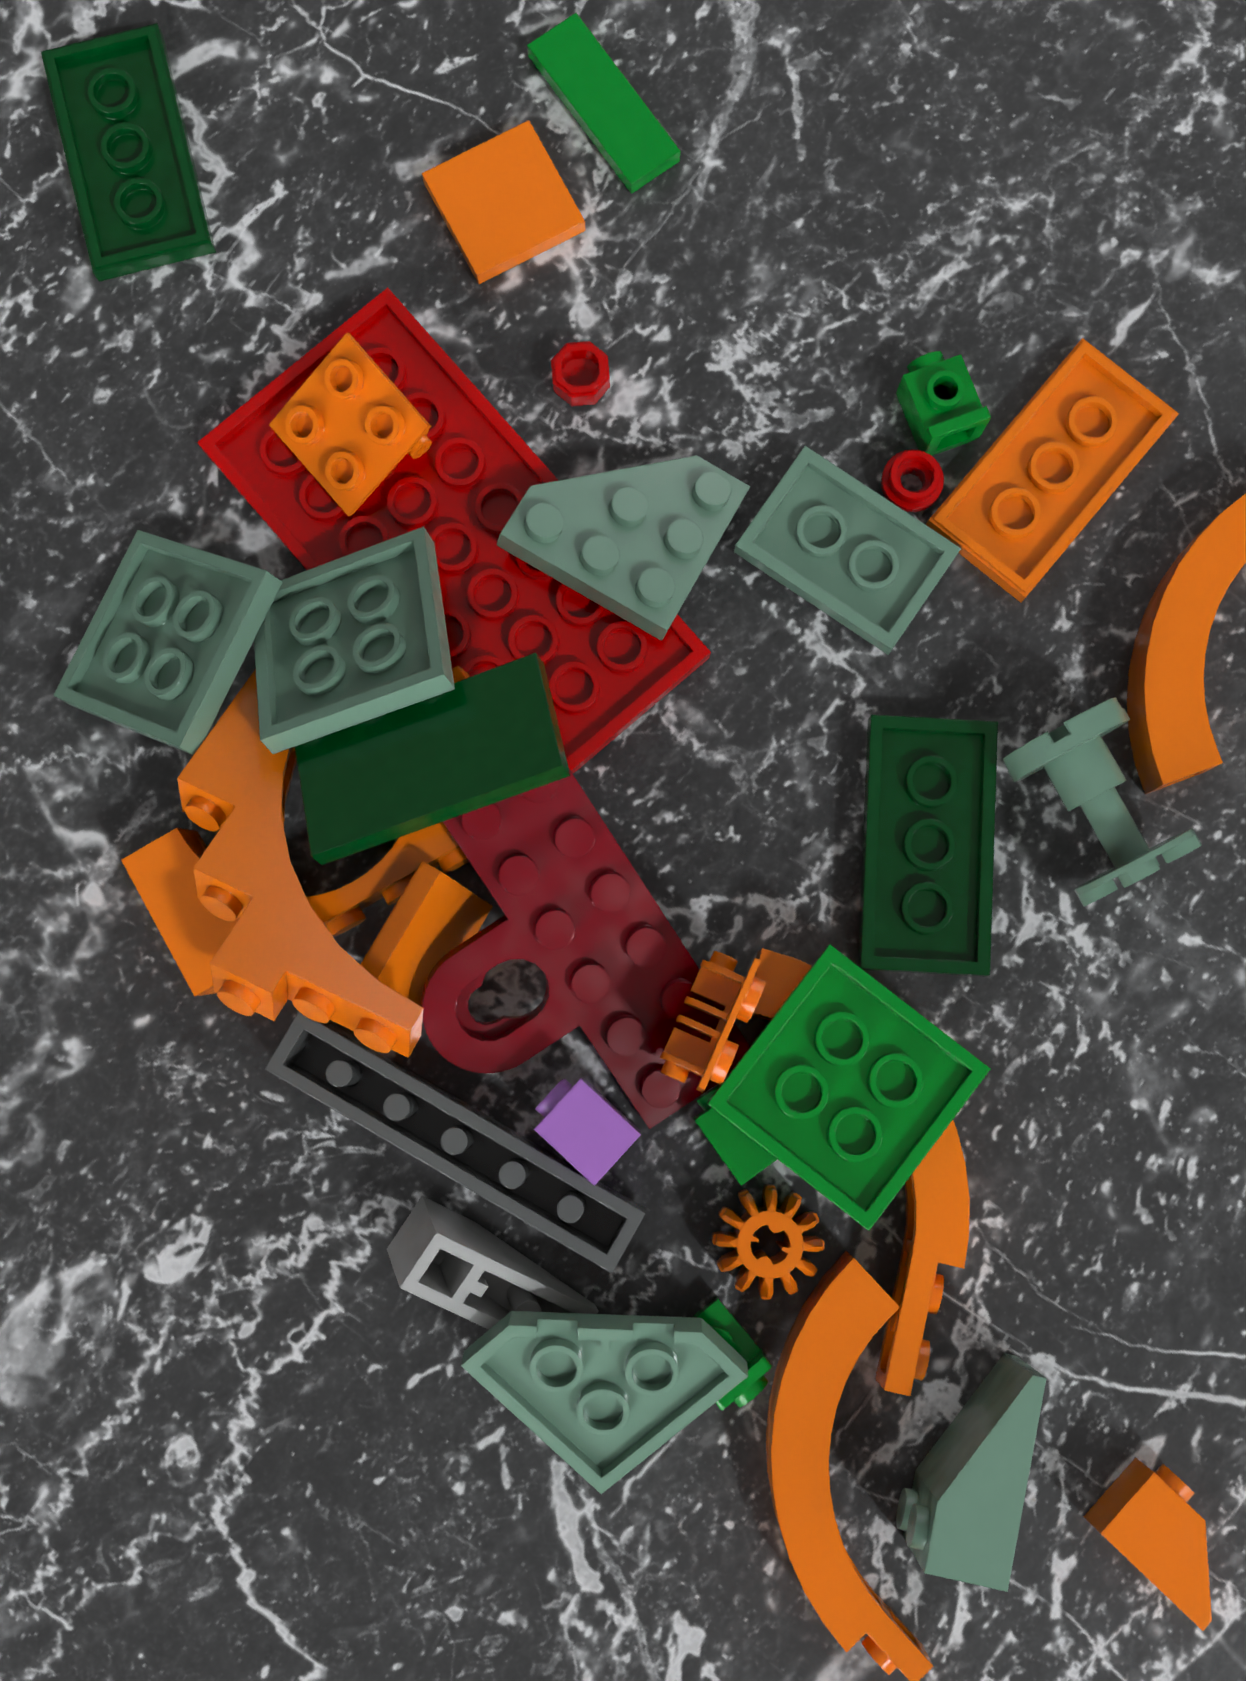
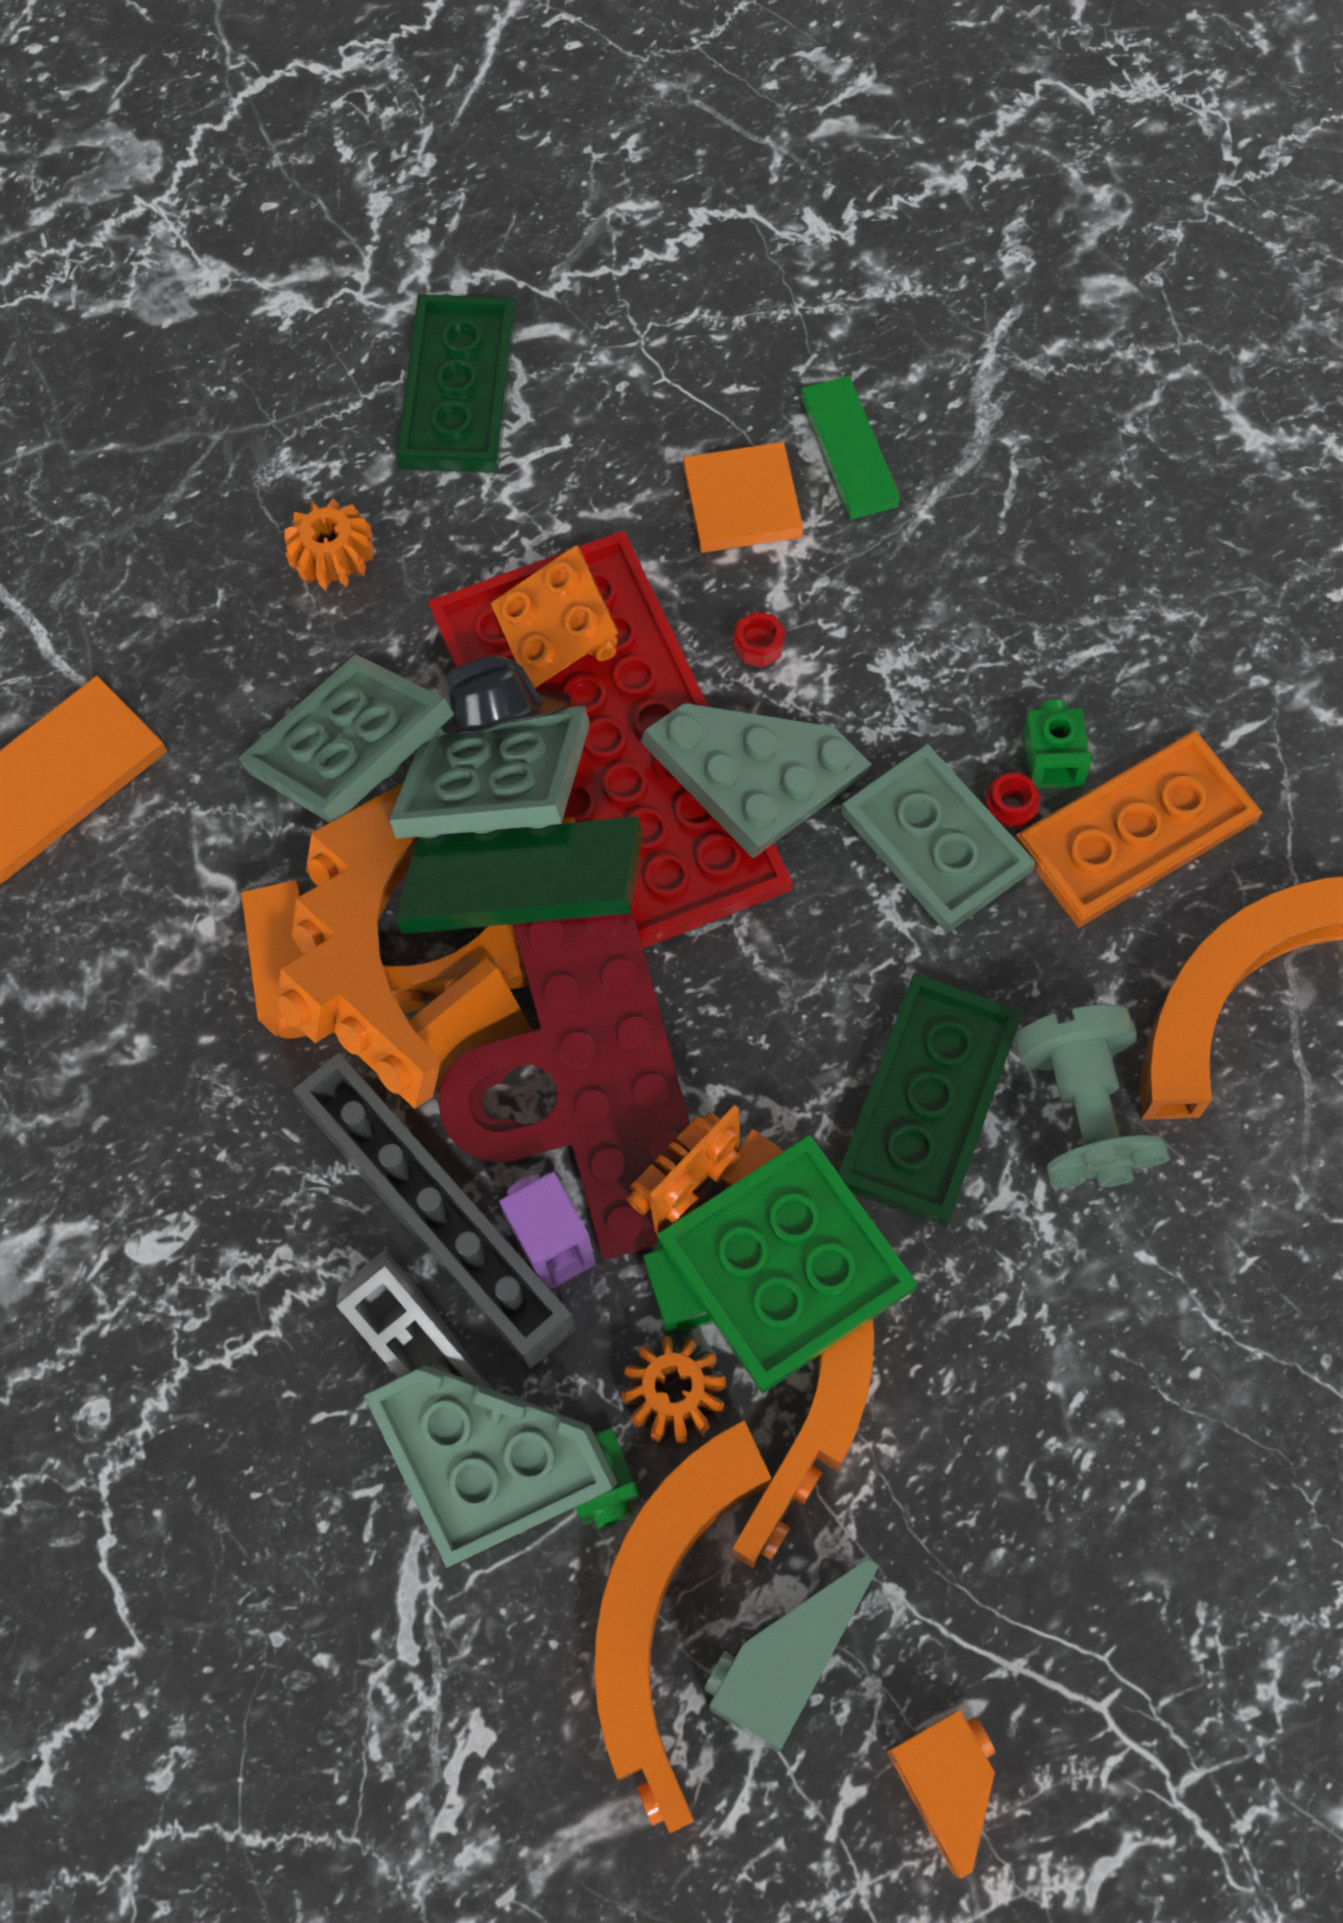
camera: 20 degrees right, 15 degrees down
(48, 385) = (329, 544): none -> orange gear
(325, 544) = (496, 693): none -> black piece

